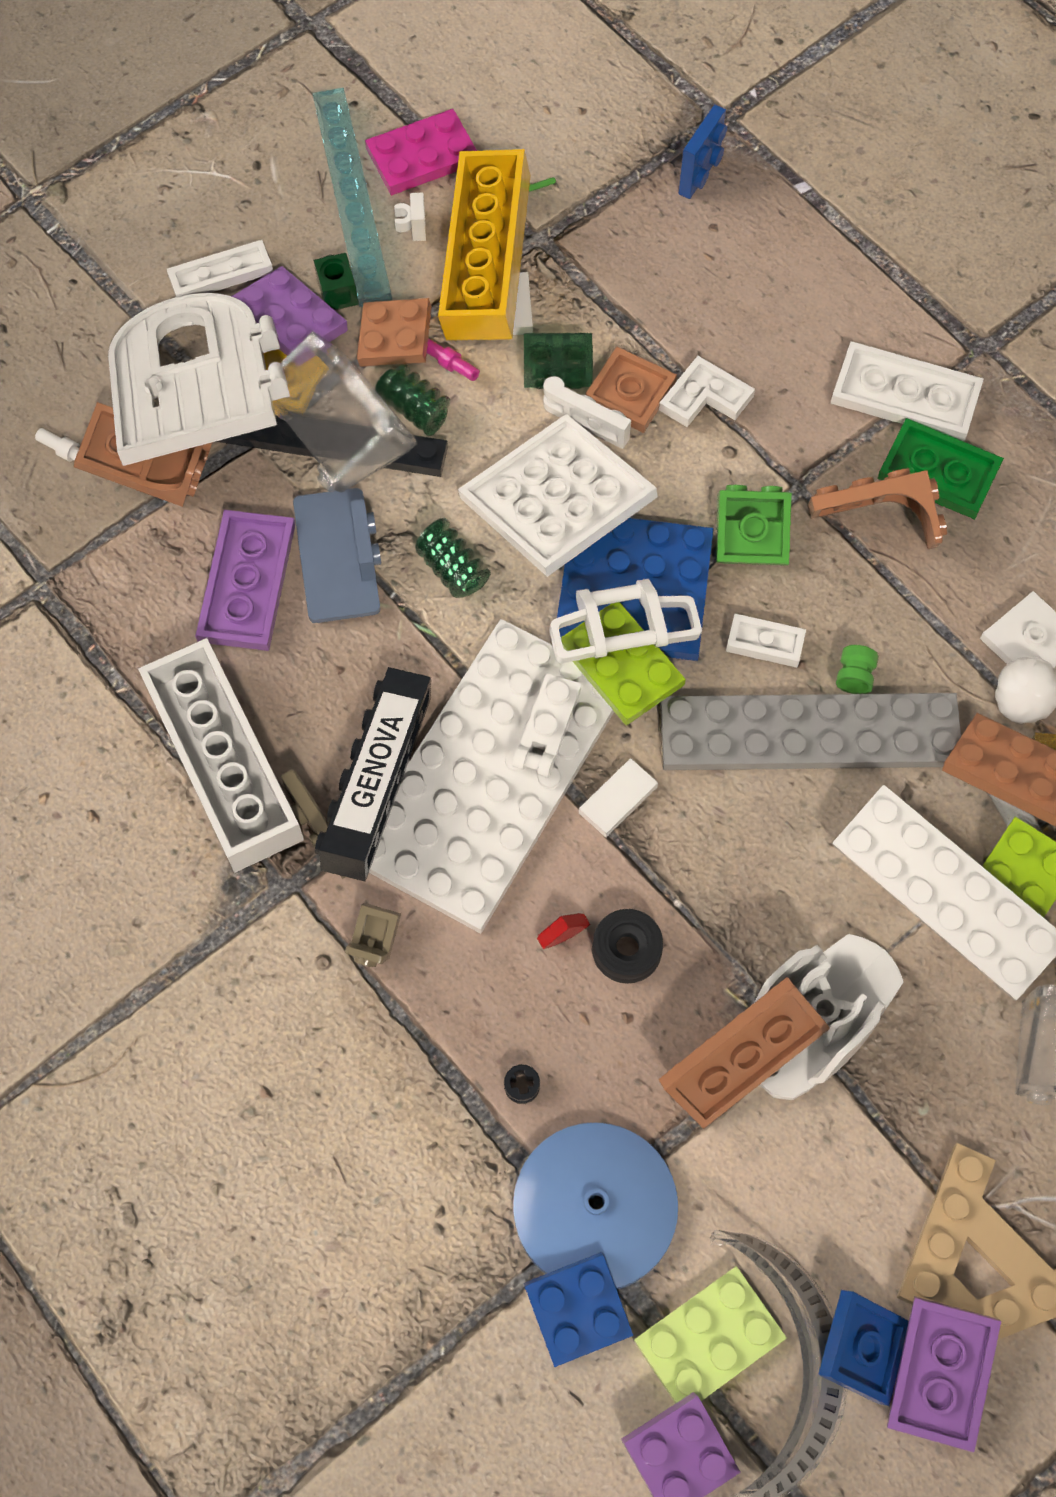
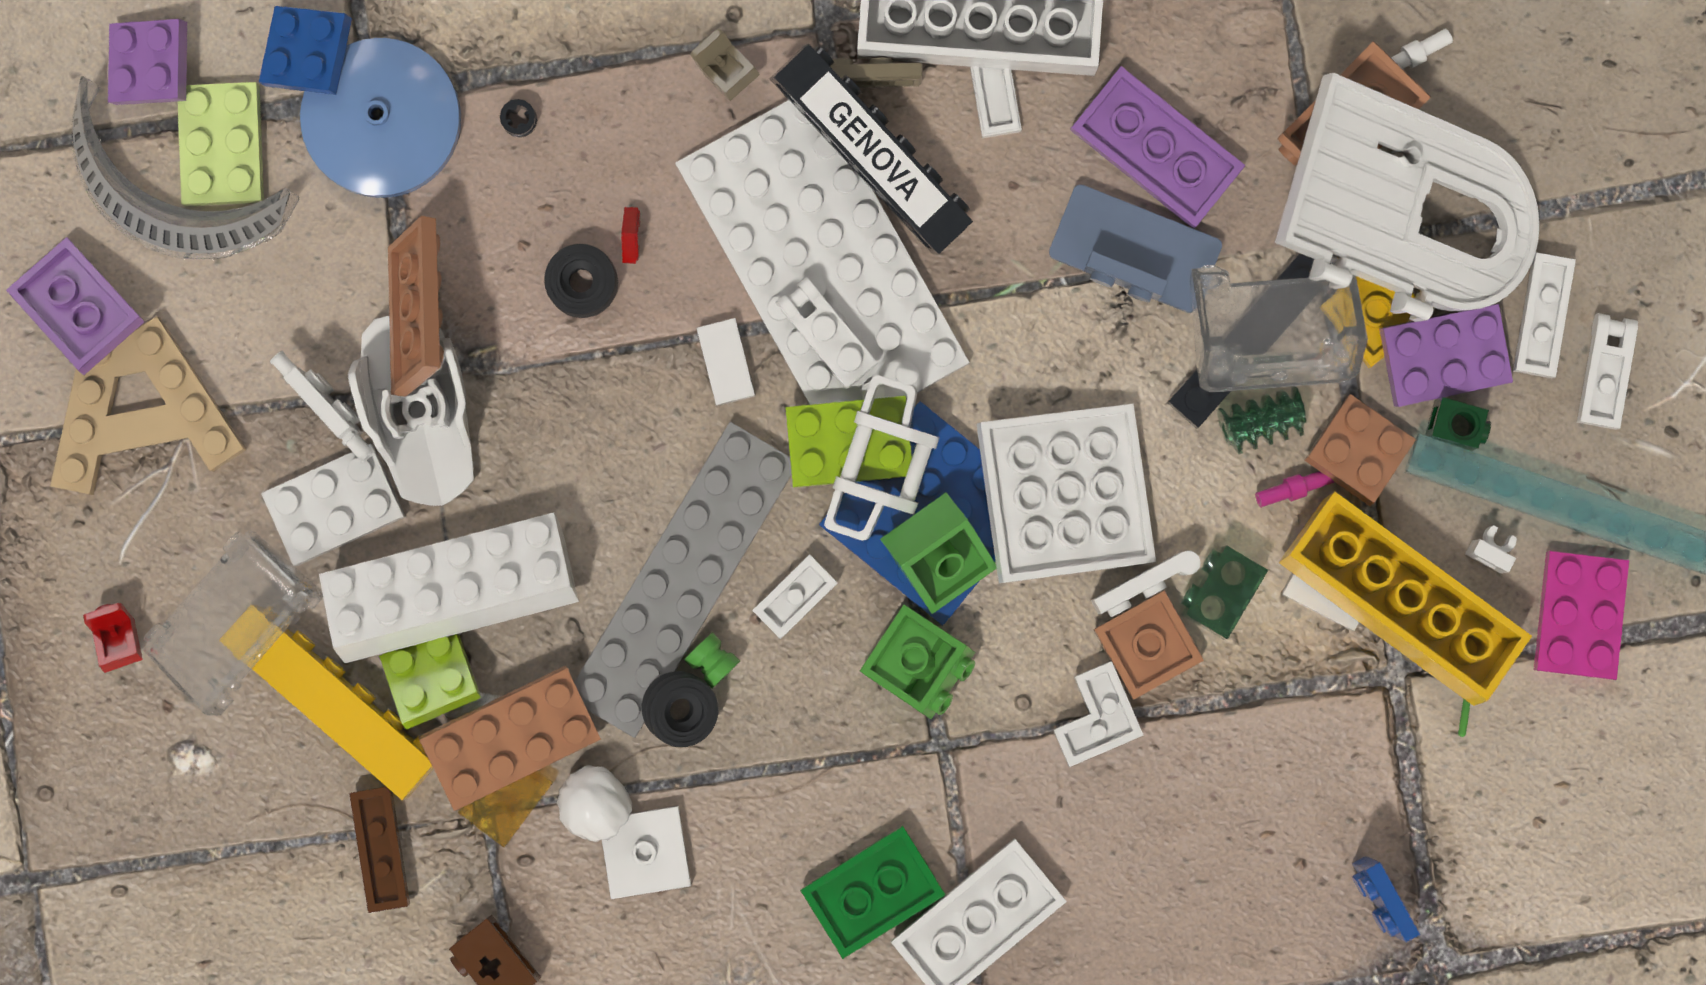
camera: 120 degrees right, 20 degrees up
(236, 215) = (1607, 372): none -> white plate
(279, 717) = (995, 101): none -> white tile
(451, 560) = (1058, 350): clear green piece -> none
(662, 550) = (939, 552): none -> bright green slope
(864, 1348) = (132, 255): blue plate -> none
(877, 1072) = (316, 393): none -> white plate
(900, 486) = (861, 813): nougat bracket -> none
(911, 683) = (695, 724): none -> black tyre
(948, 1039) = (332, 506): none -> white plate

